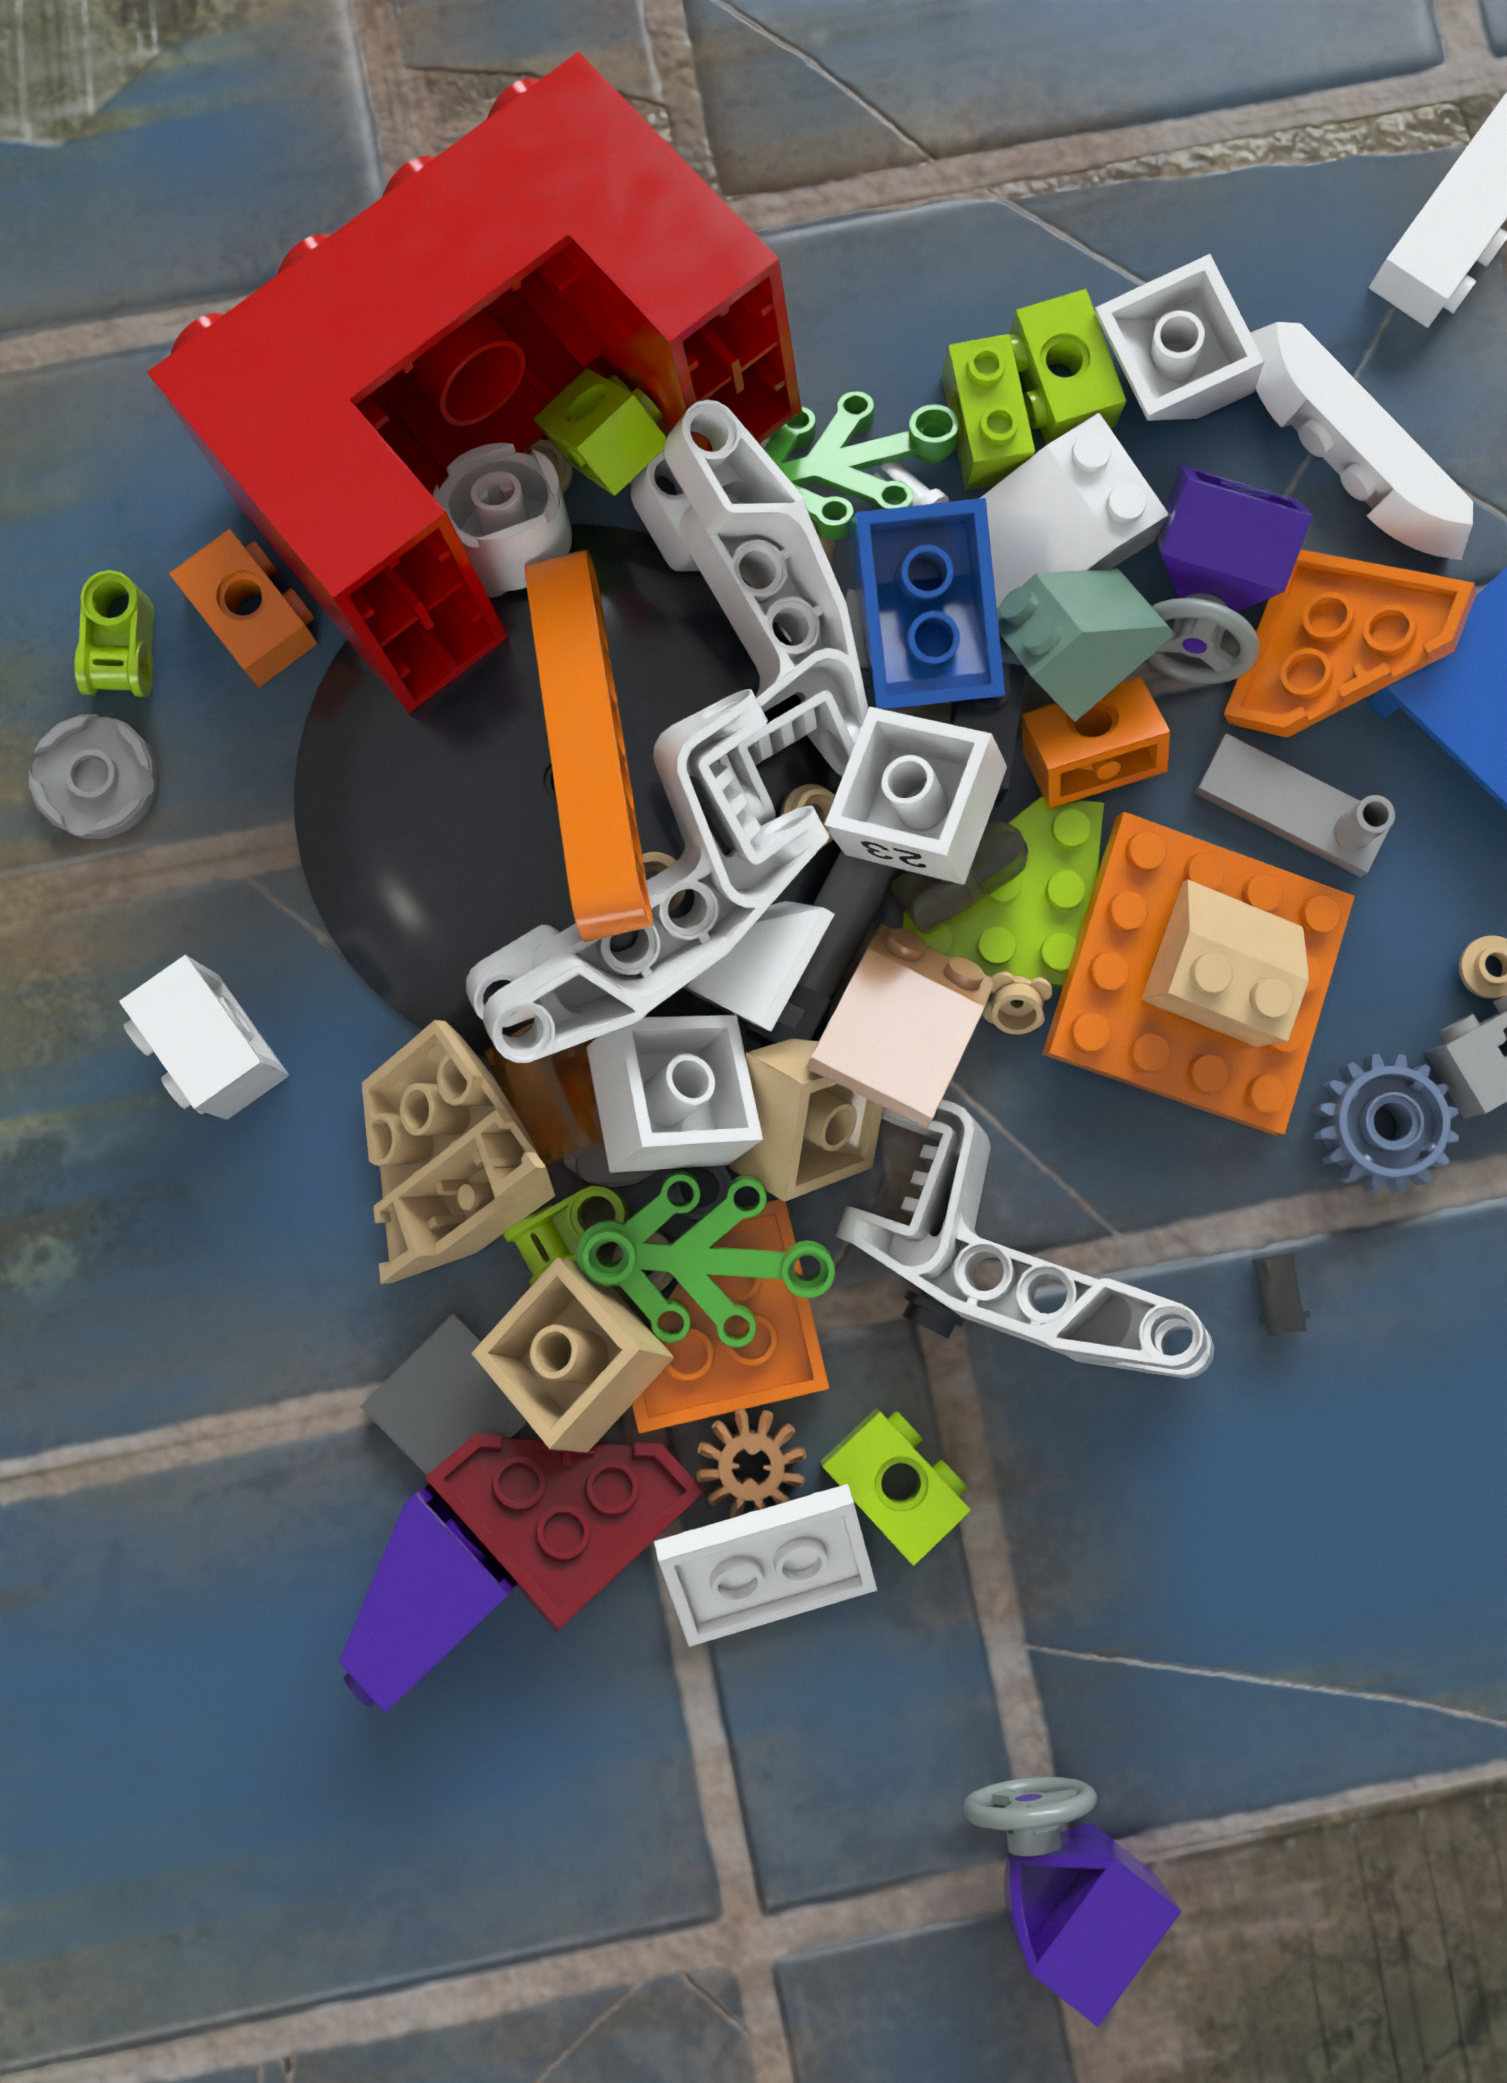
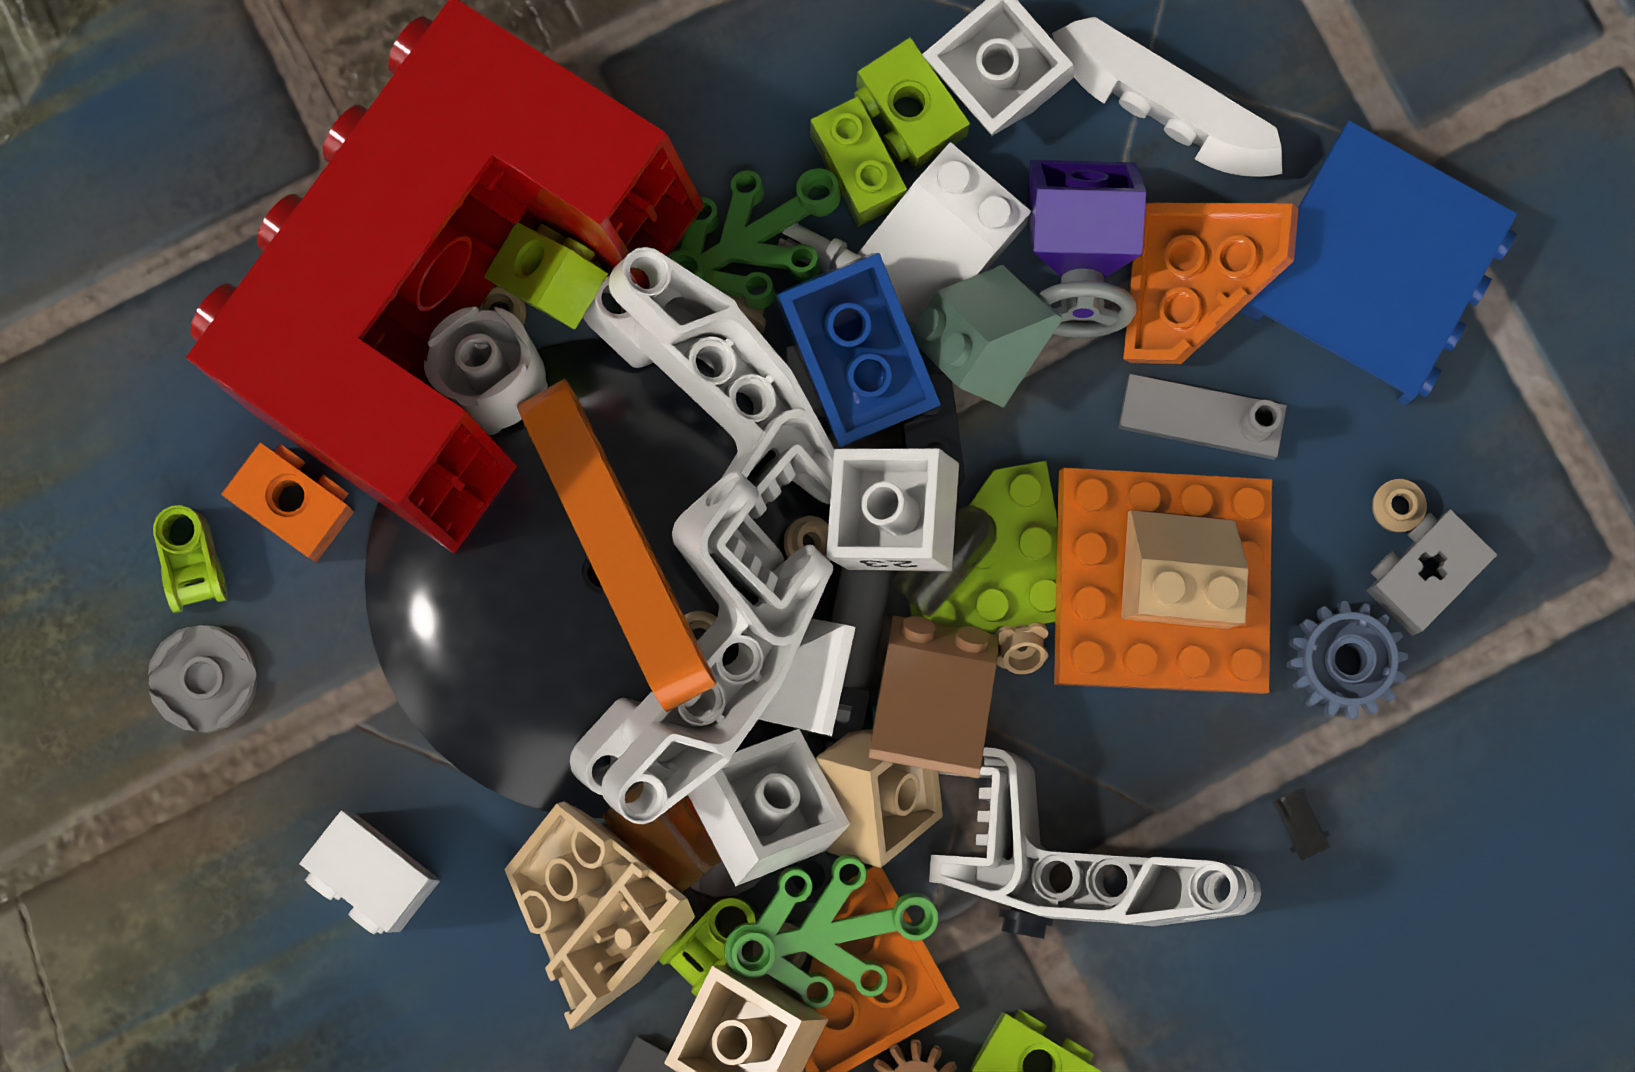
camera: 20 degrees left, 0 degrees up
(1104, 749) = (1015, 440): orange brick -> none

